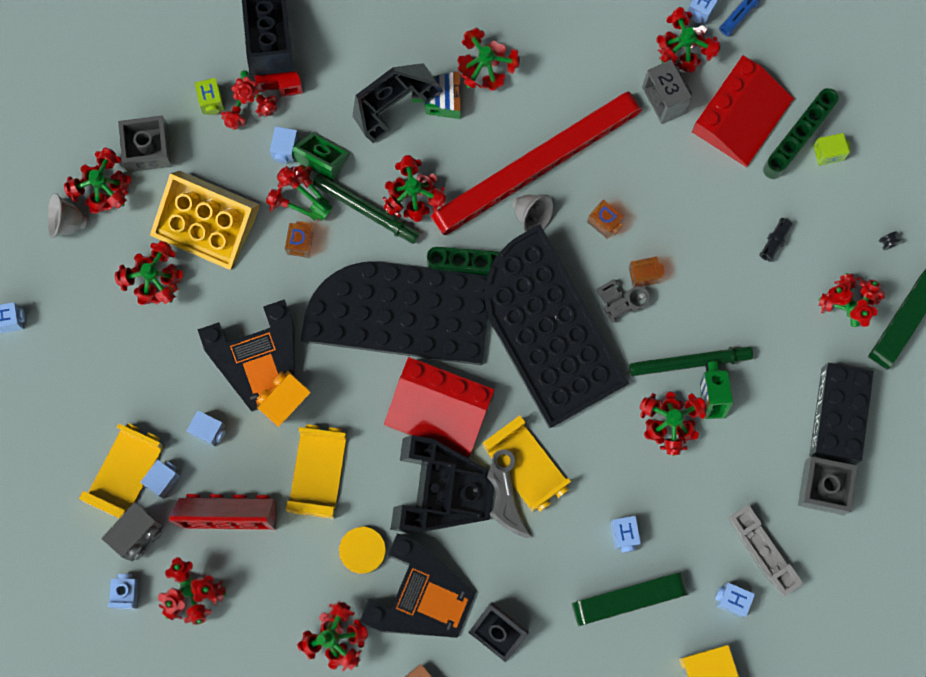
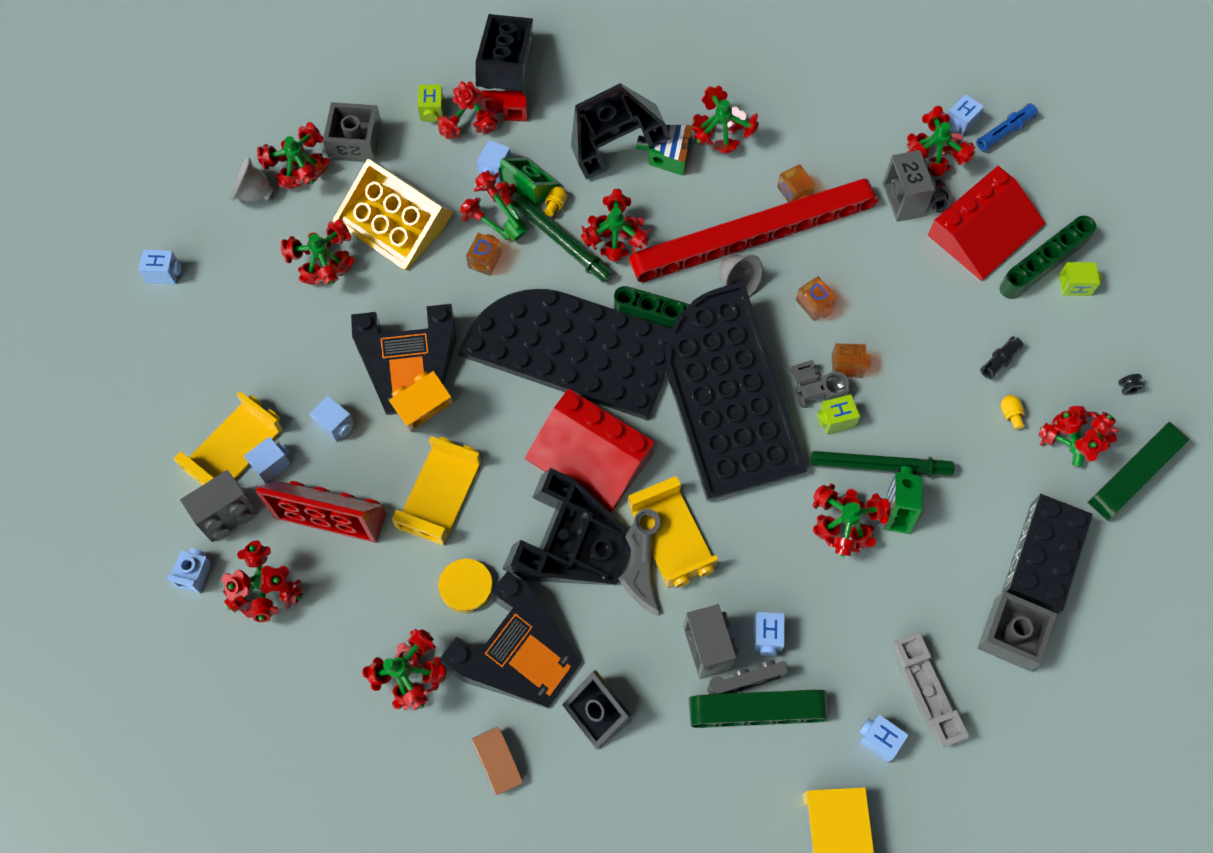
camera: 15 degrees right, 10 degrees down
(350, 171) = (555, 200): none -> yellow cylinder
(565, 110) = (795, 184): none -> clear orange brick
(579, 553) = (709, 641): none -> dark grey brick
(613, 577) = (744, 680): none -> dark grey plate
(645, 325) = (838, 414): none -> lime brick
(697, 95) = (940, 197): none -> black pin
(793, 287) = (1013, 410): none -> yellow cylinder

